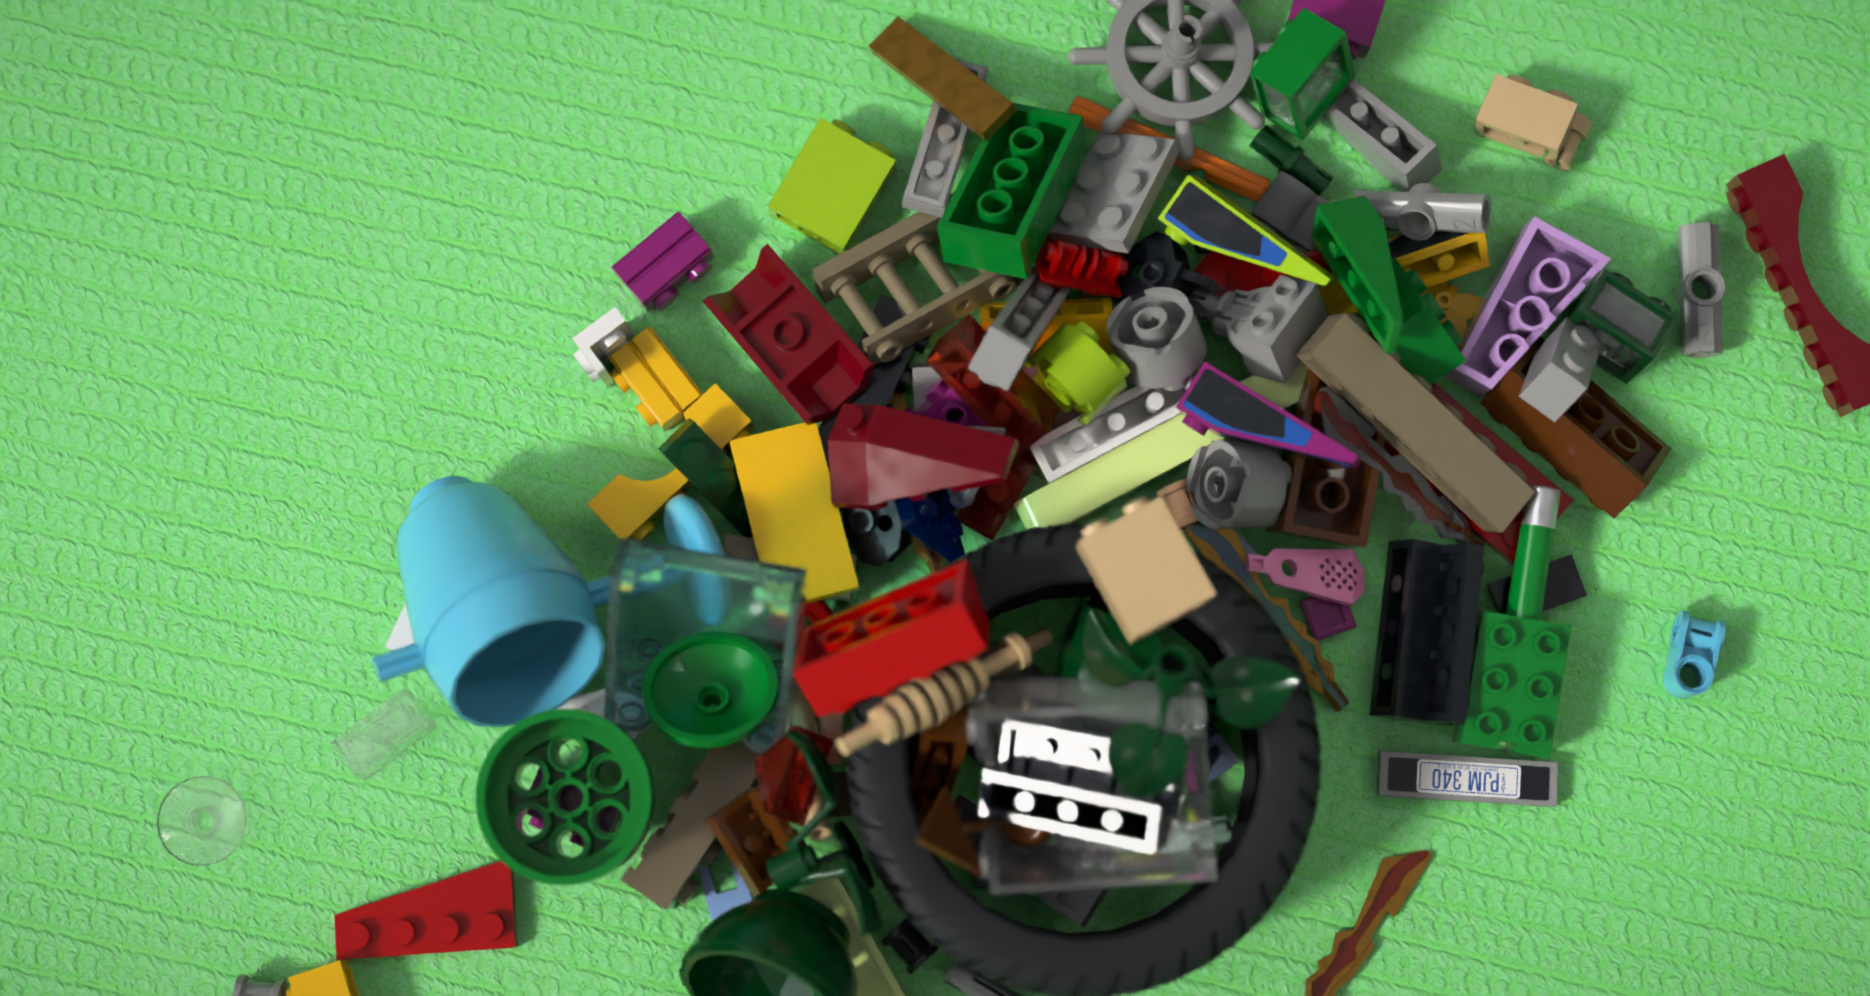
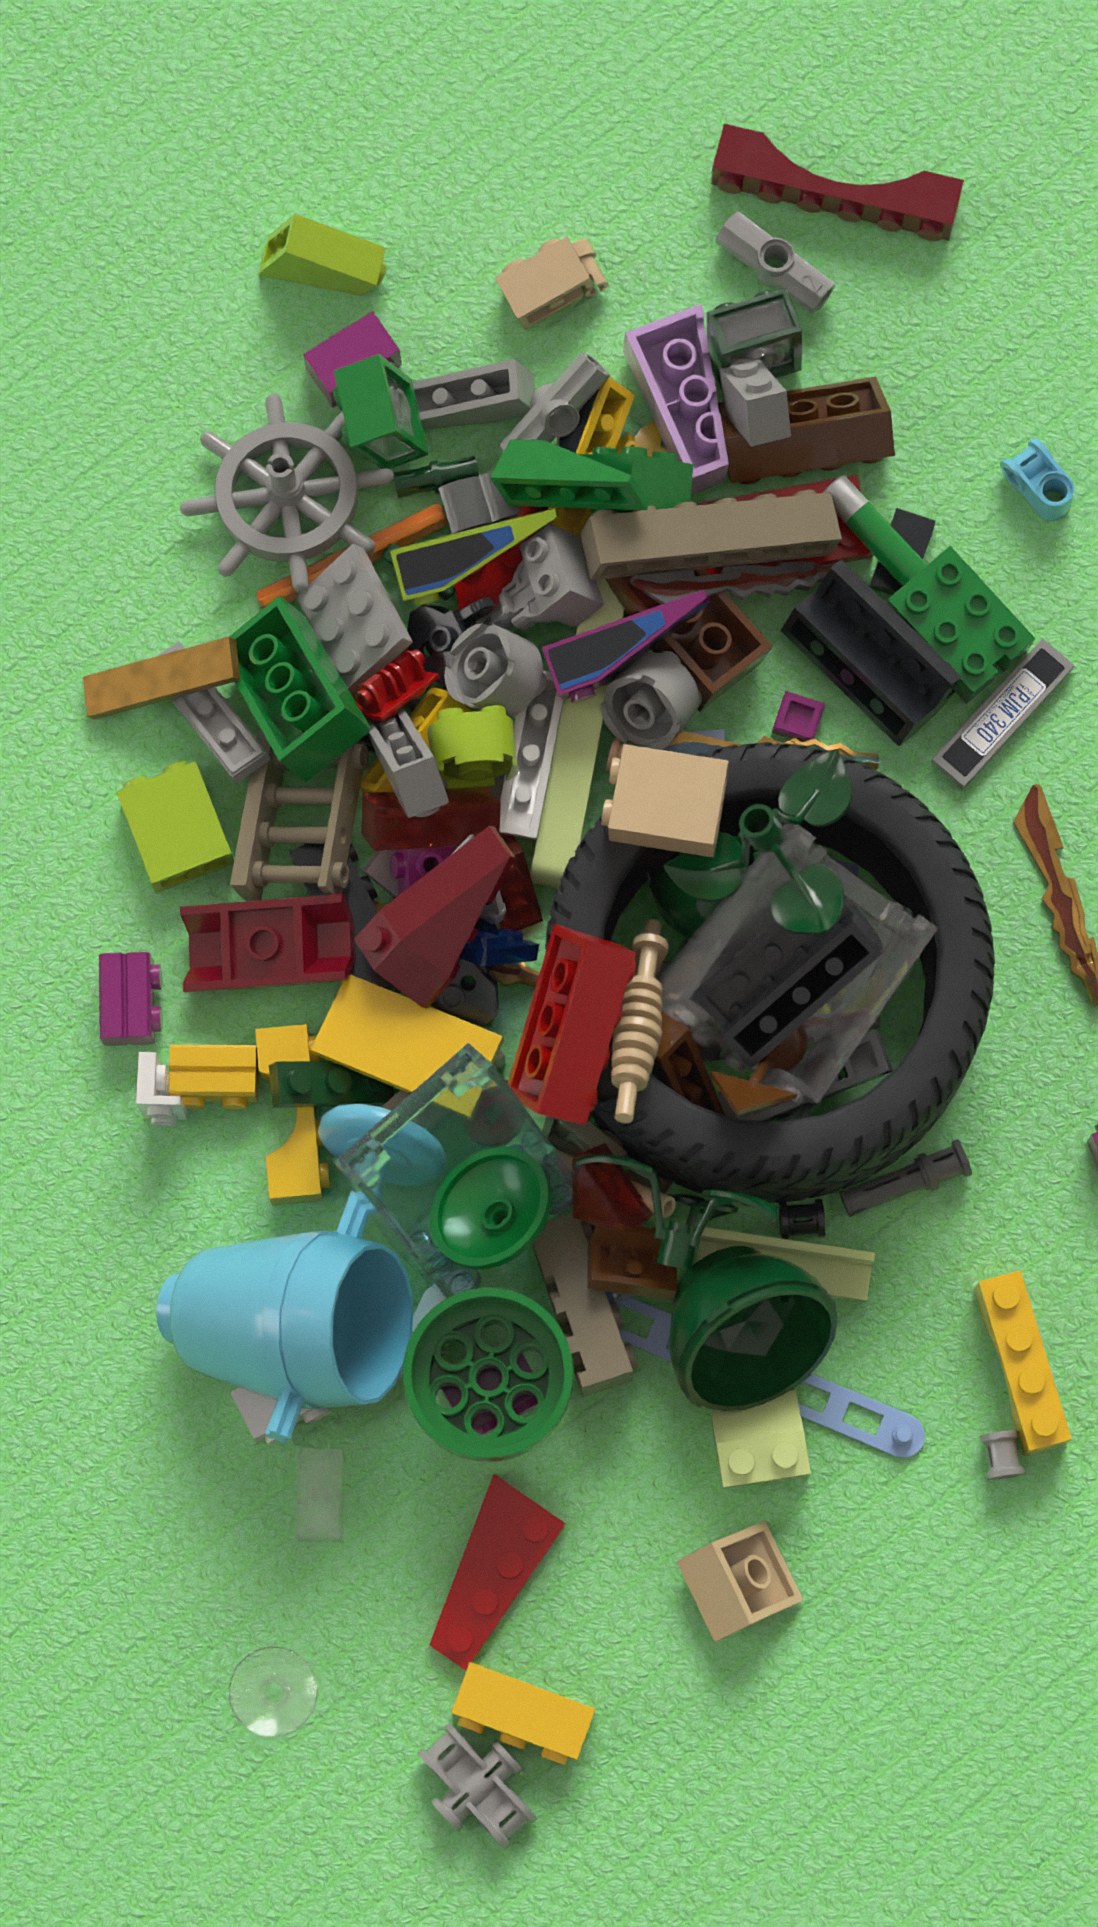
camera: 50 degrees left, 5 degrees down
(1307, 569) = (764, 696): bright pink piece -> none

